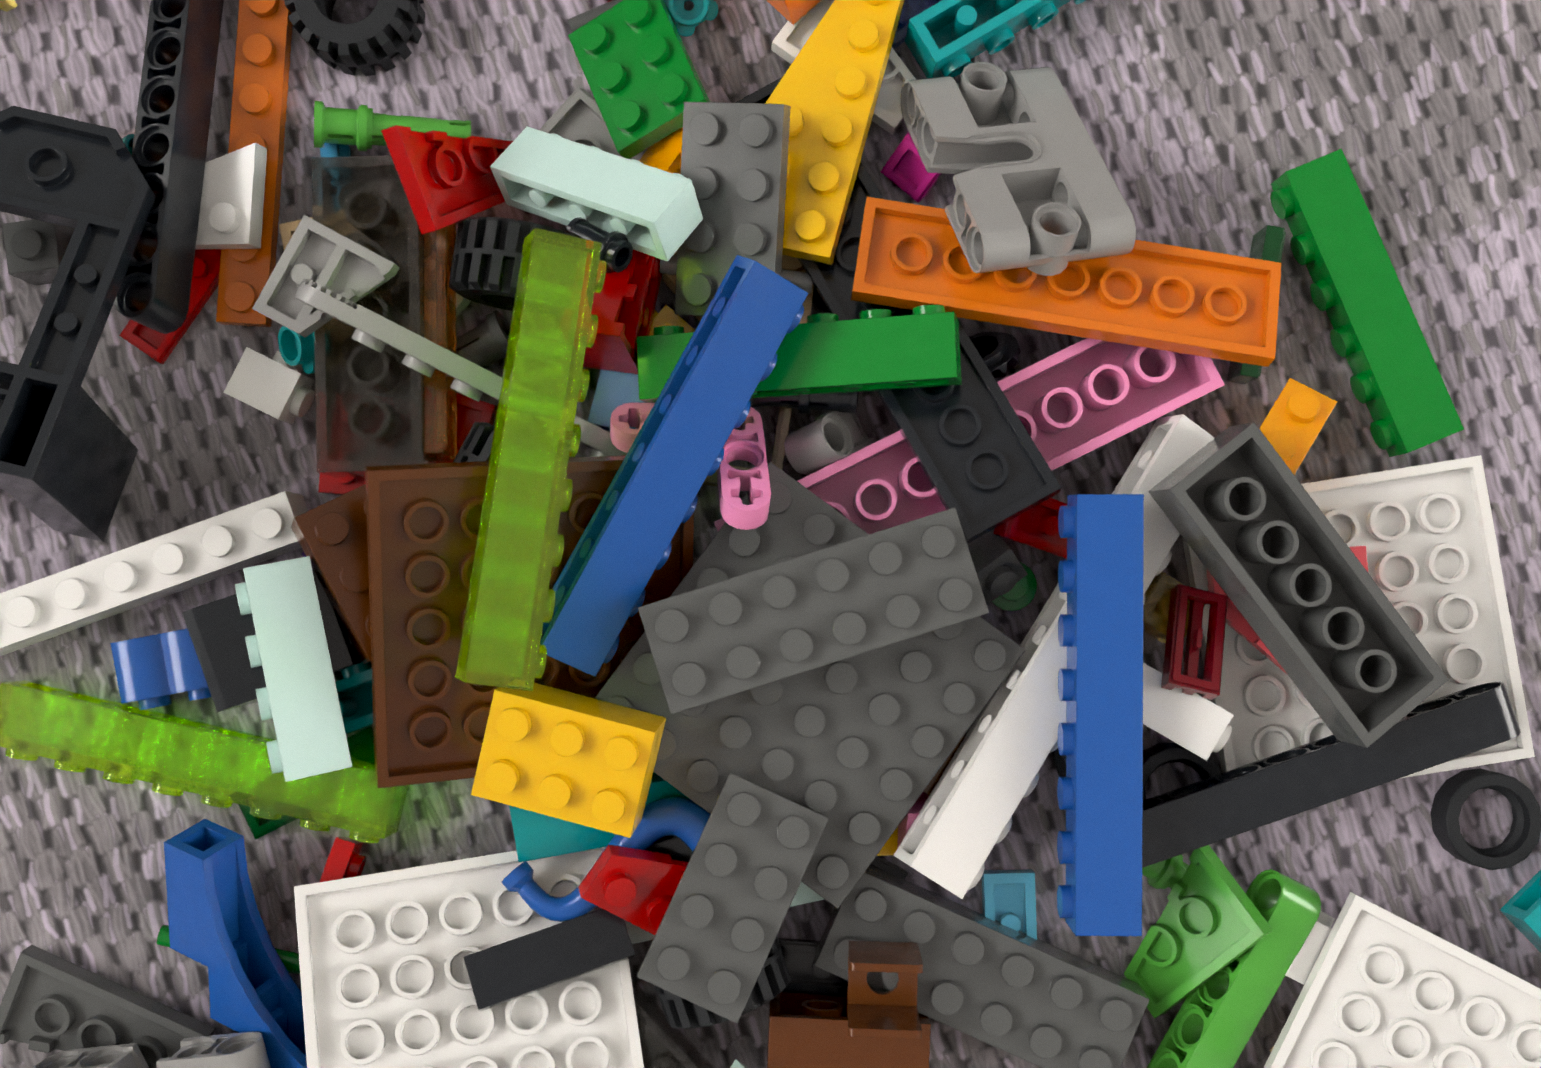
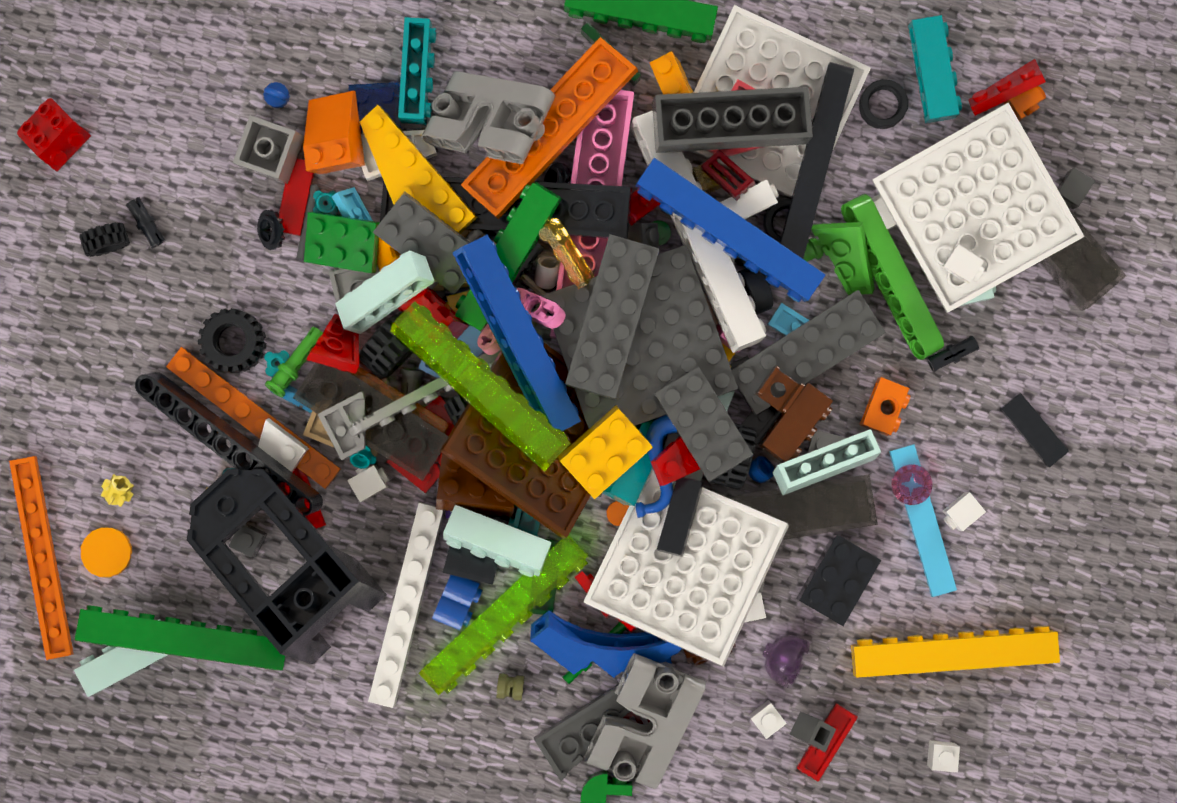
camera: 55 degrees left, 0 degrees up
(87, 850) = (510, 686): none -> olive wheel
(373, 91) = (271, 358): none -> teal plate
(494, 833) = (616, 512): none -> orange tile
(614, 248) = (404, 304): black pin -> none
(713, 47) = (351, 205): none -> medium azure plate
(733, 1037) = (761, 469): none -> blue tile
(872, 454) = (566, 252): none -> clear yellow plate
(908, 170) = (457, 159): dark pink tile -> none
(1033, 824) = (758, 289): none -> black tyre

